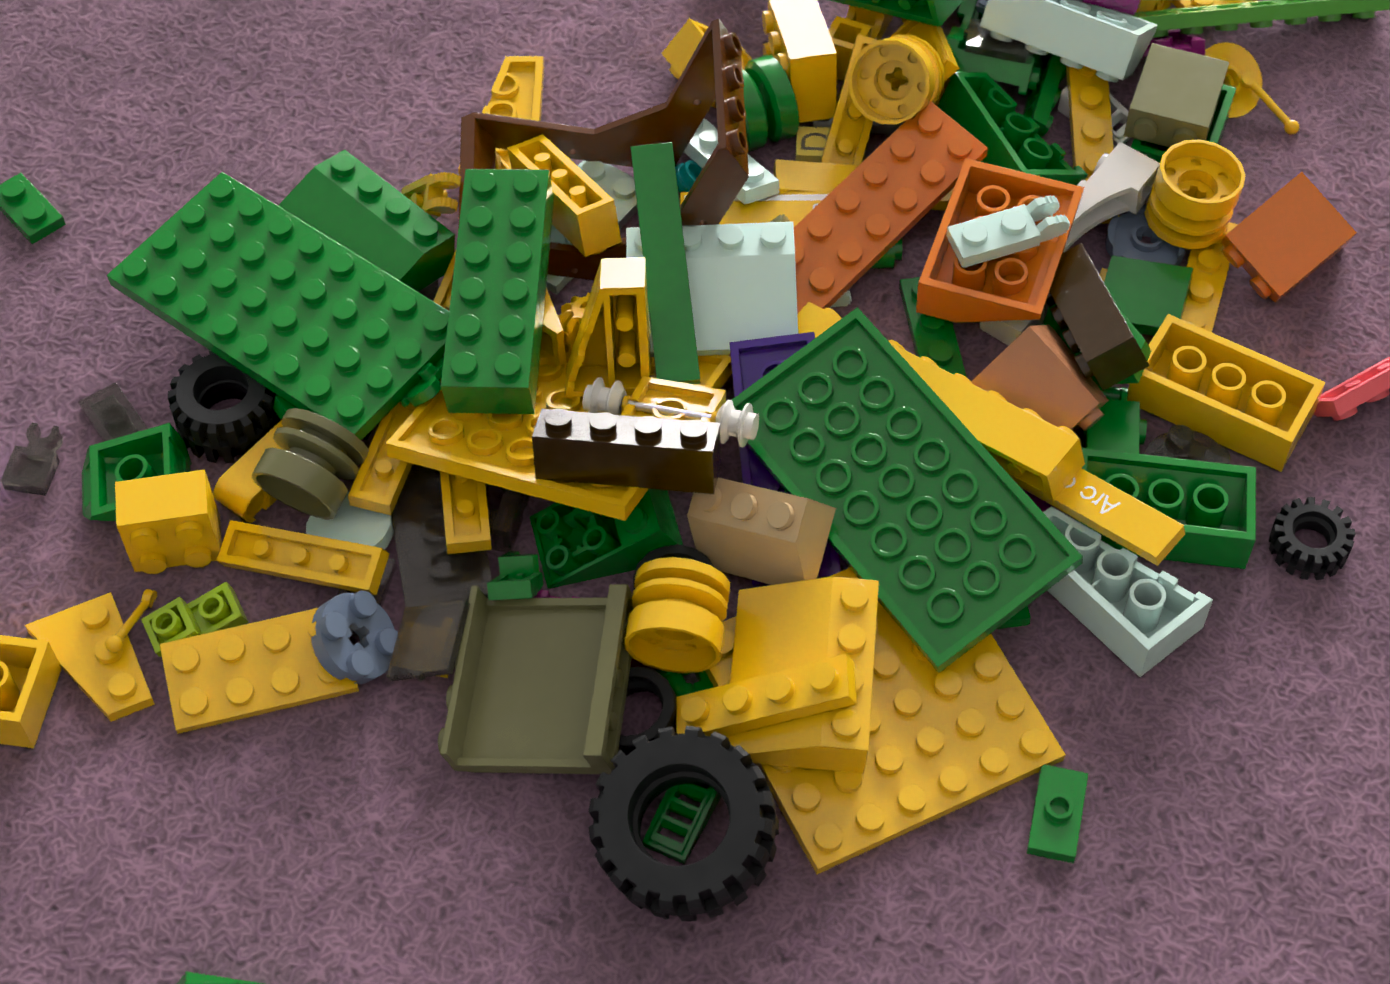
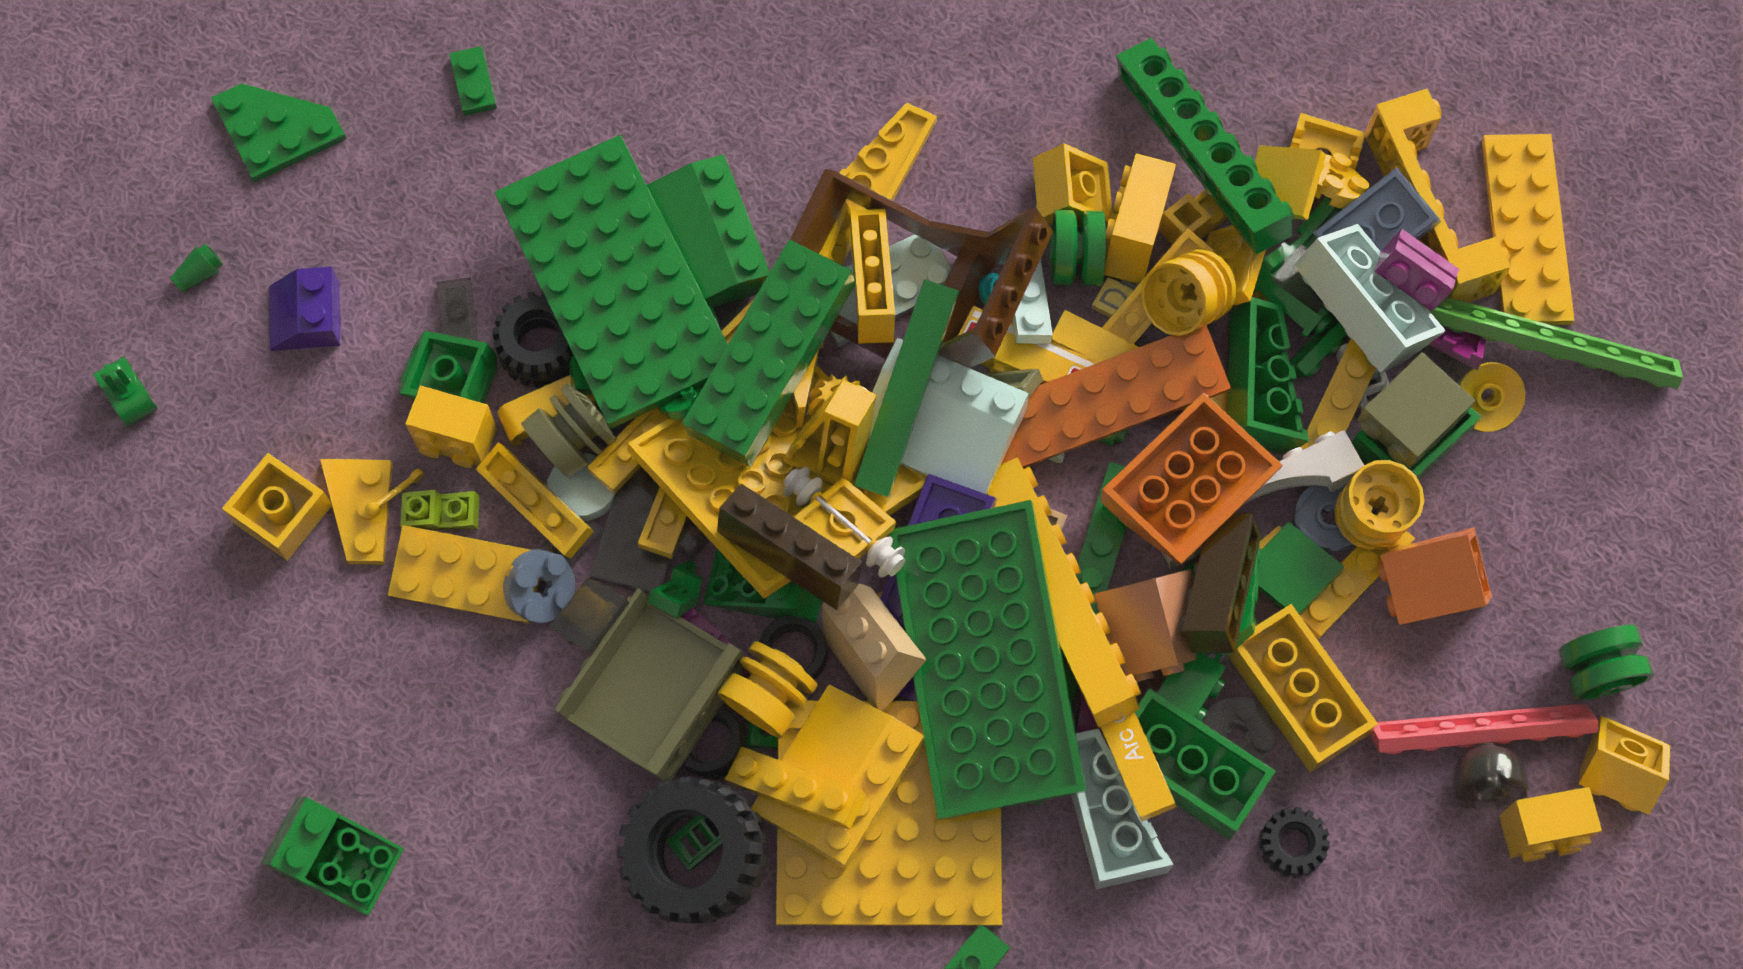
camera: 25 degrees right, 15 degrees up
(33, 466) = (380, 324): clear smoke plate -> none
(430, 193) = (770, 225): yellow hinge -> none
(1007, 231) = (1192, 478): light aqua hinge -> none
(1249, 80) = (1508, 405): yellow hinge -> none

